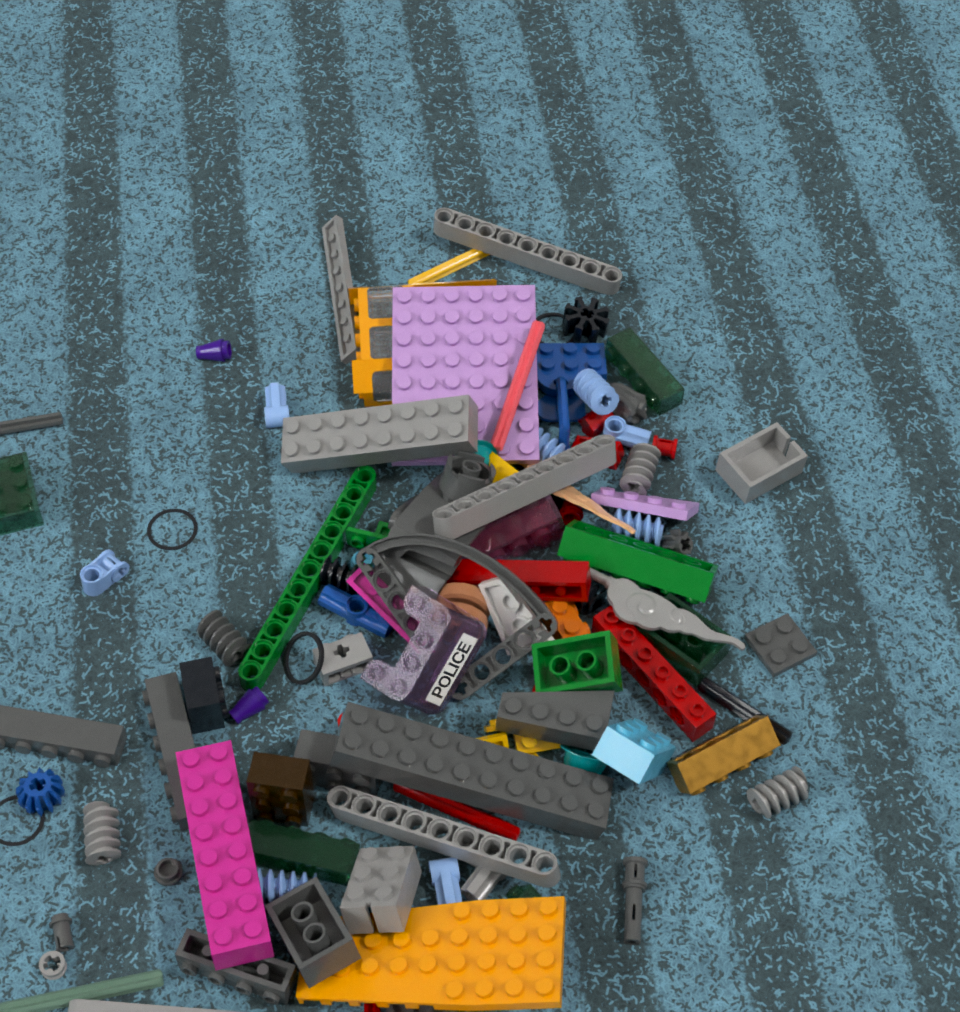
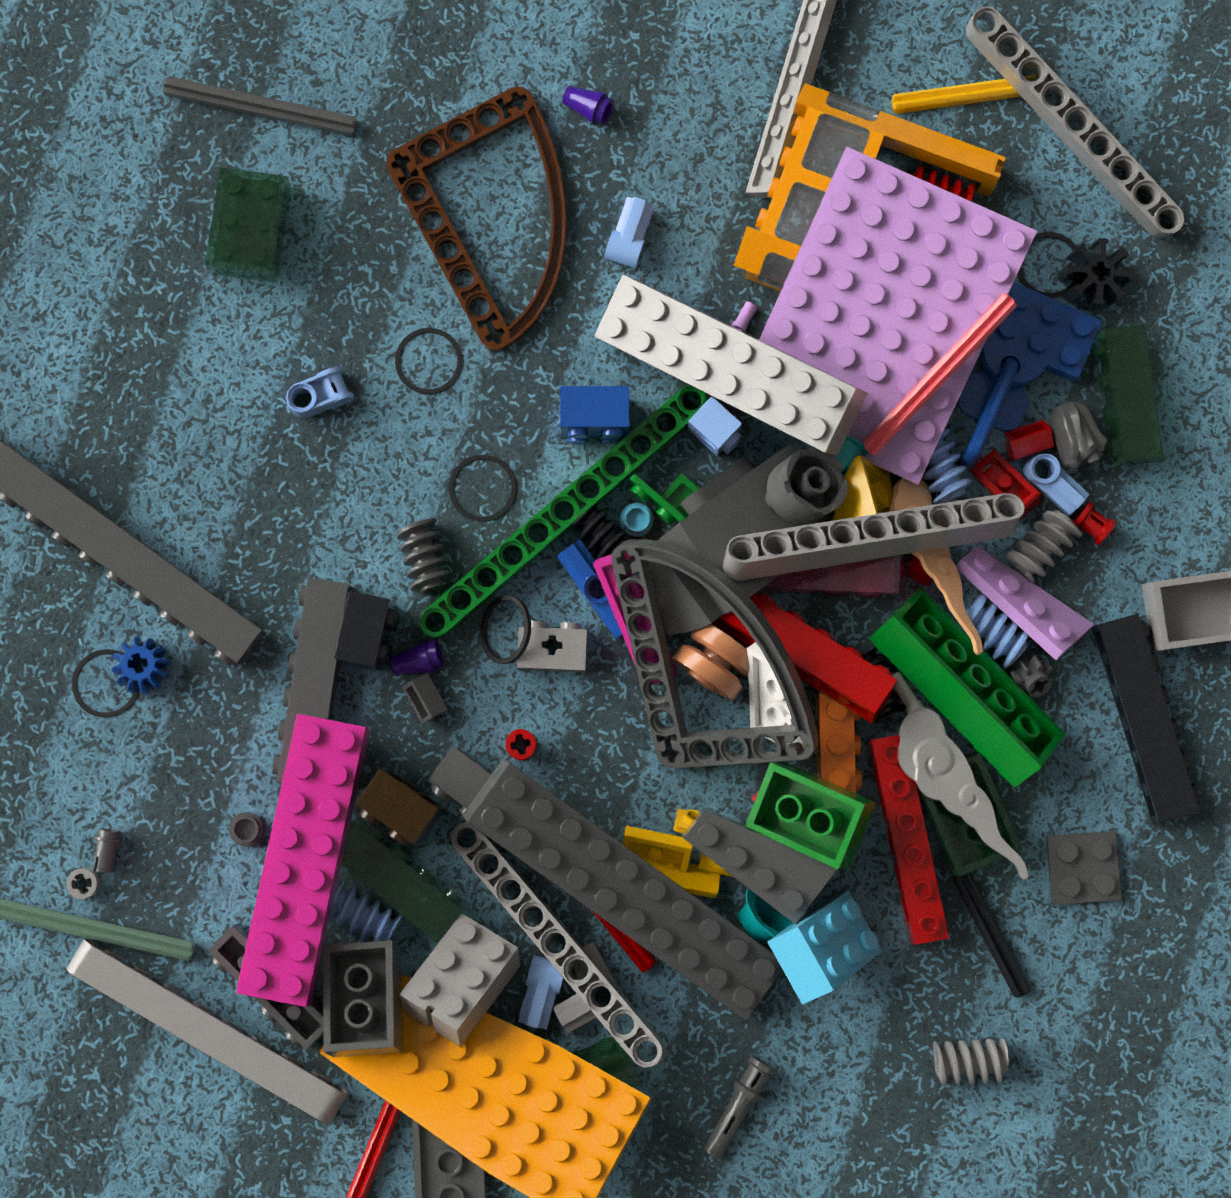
camera: 25 degrees right, 30 degrees up
(101, 833) = (189, 753): light grey piece -> none
(188, 475) = (446, 232): none -> reddish brown beam
(250, 606) = (486, 518): none -> black piece
(268, 721) = (425, 698): none -> dark grey piece
(302, 504) = (594, 413): none -> blue brick
(388, 482) = (715, 427): none -> light blue brick
(434, 655) = (656, 718): clear purple windscreen -> none
(595, 392) = (1042, 413): light blue piece -> none
(723, 754) = (933, 985): pearl gold brick -> none
(765, 539) = (1146, 719): none -> black brick

